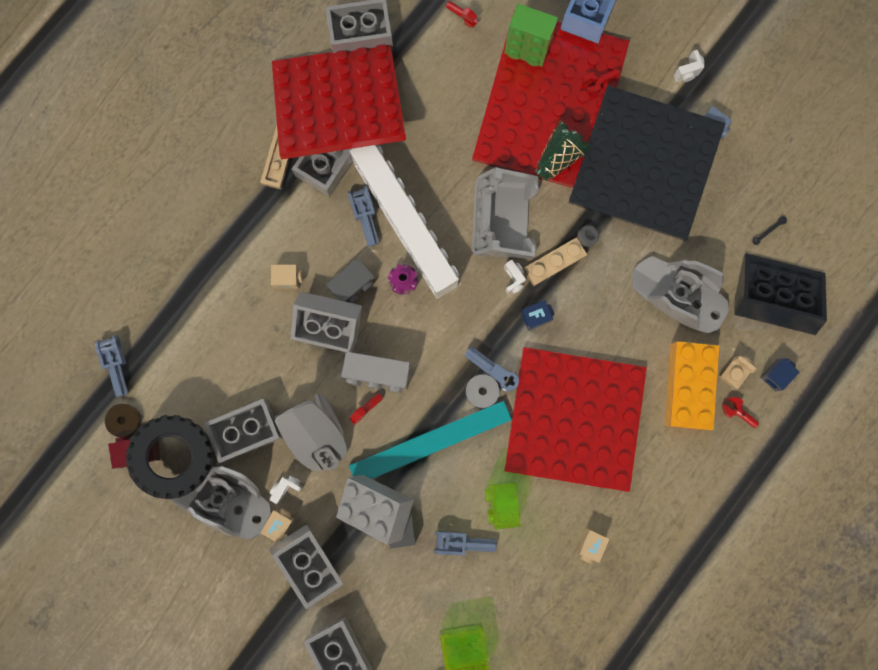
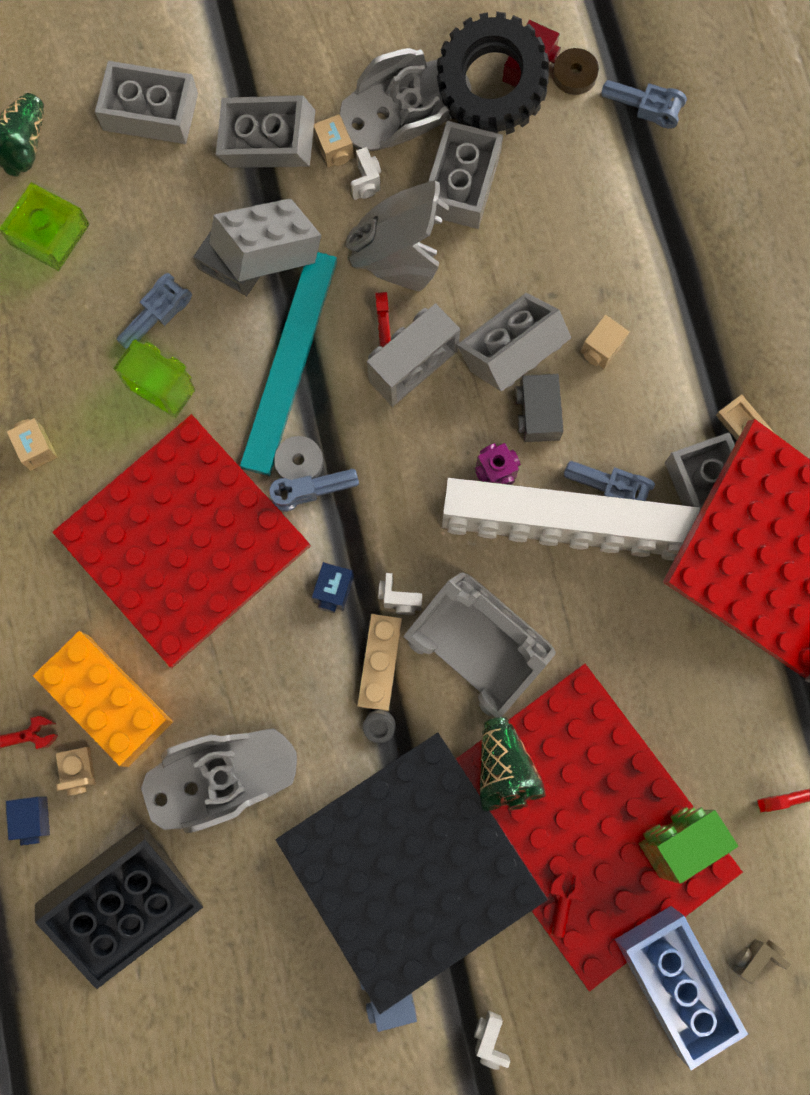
camera: 130 degrees right, 5 degrees down
(781, 221) = (204, 991): black hinge -> none

